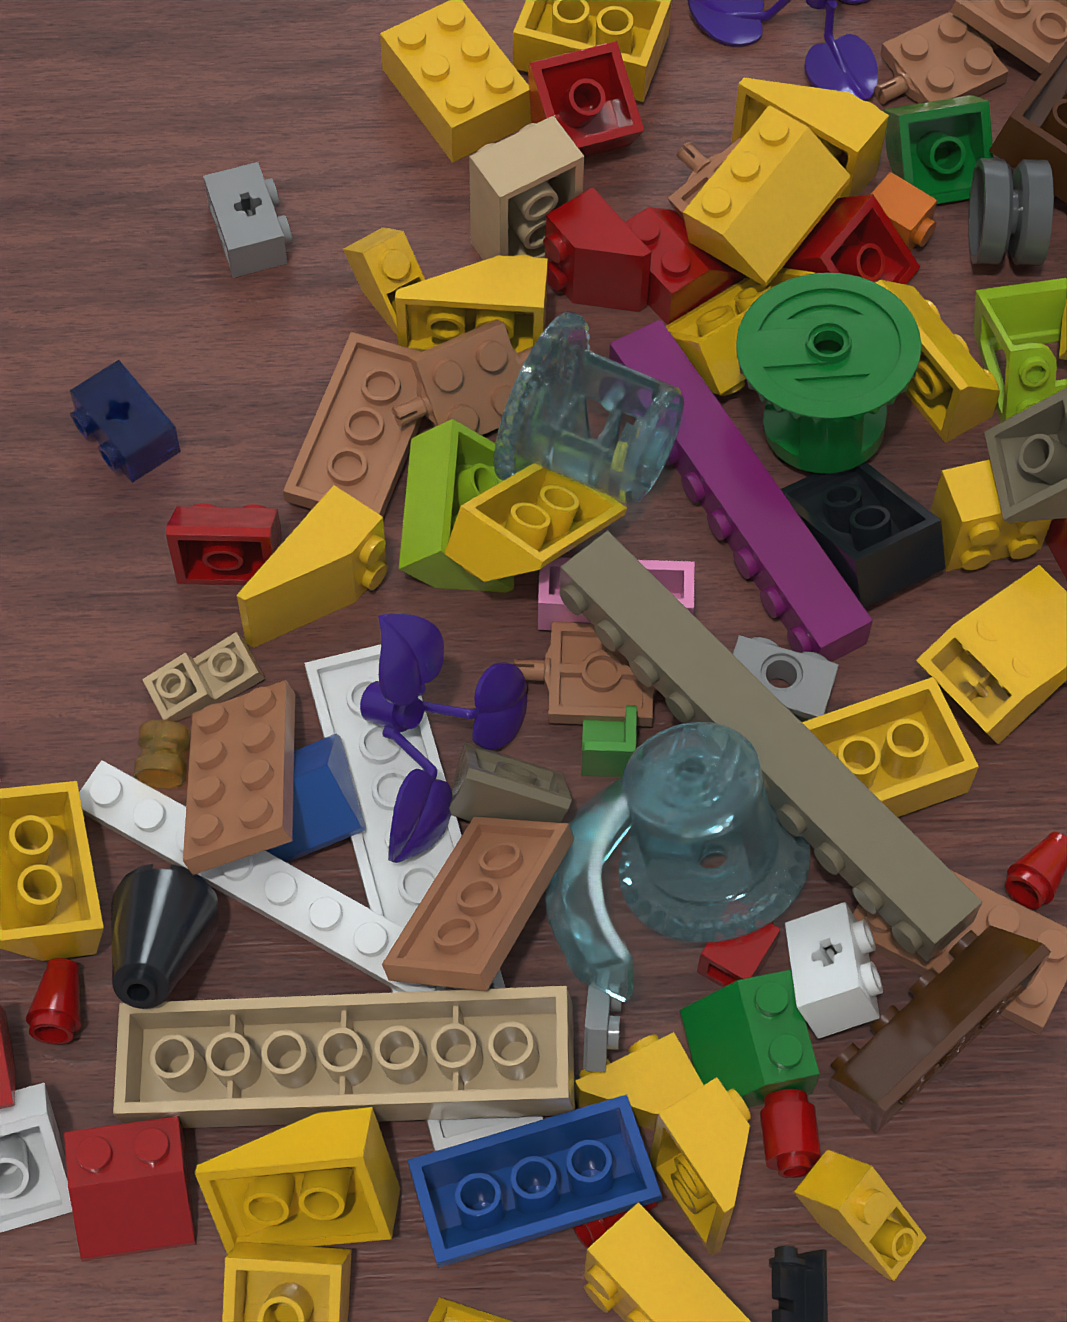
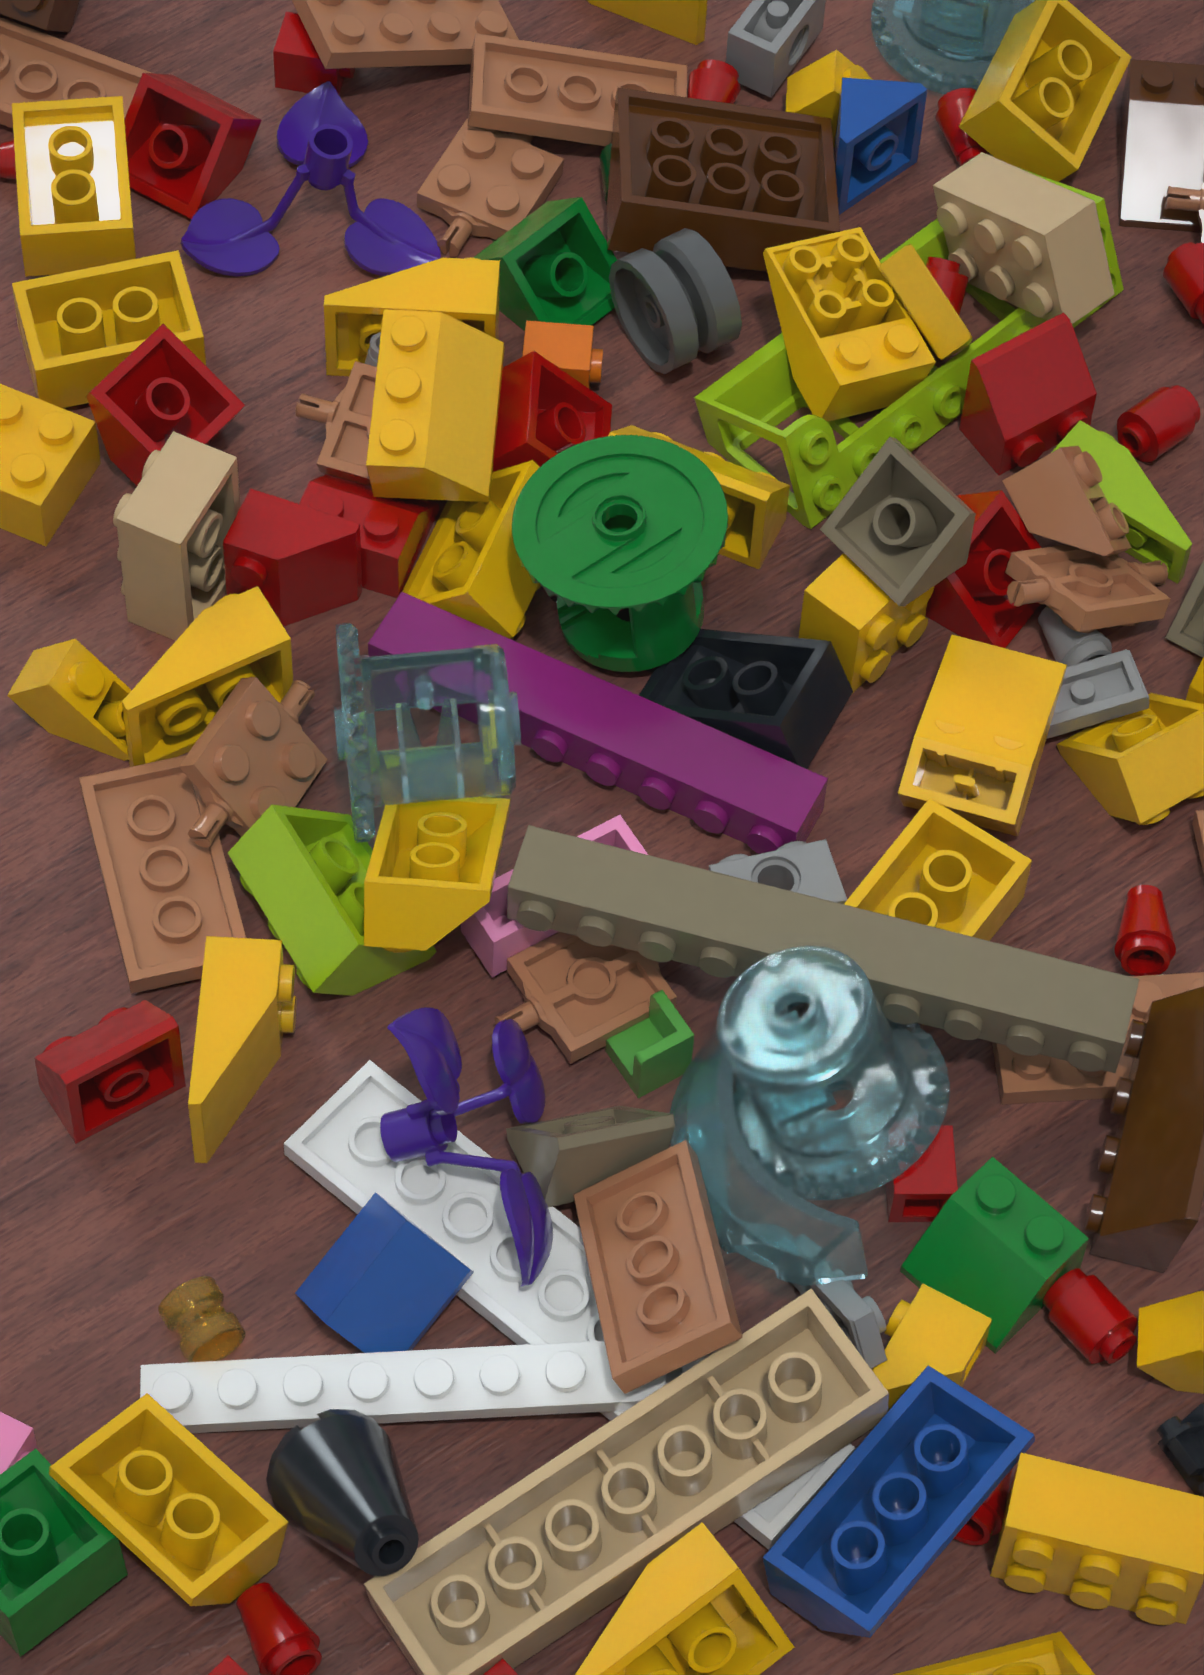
camera: 35 degrees left, 5 degrees down
(207, 679) = (183, 1223): tan slope -> none
(240, 778) = (316, 1289): nougat plate -> none
(701, 1157) = (1056, 1378): yellow slope -> none
(833, 970) = (1030, 1135): white brick -> none

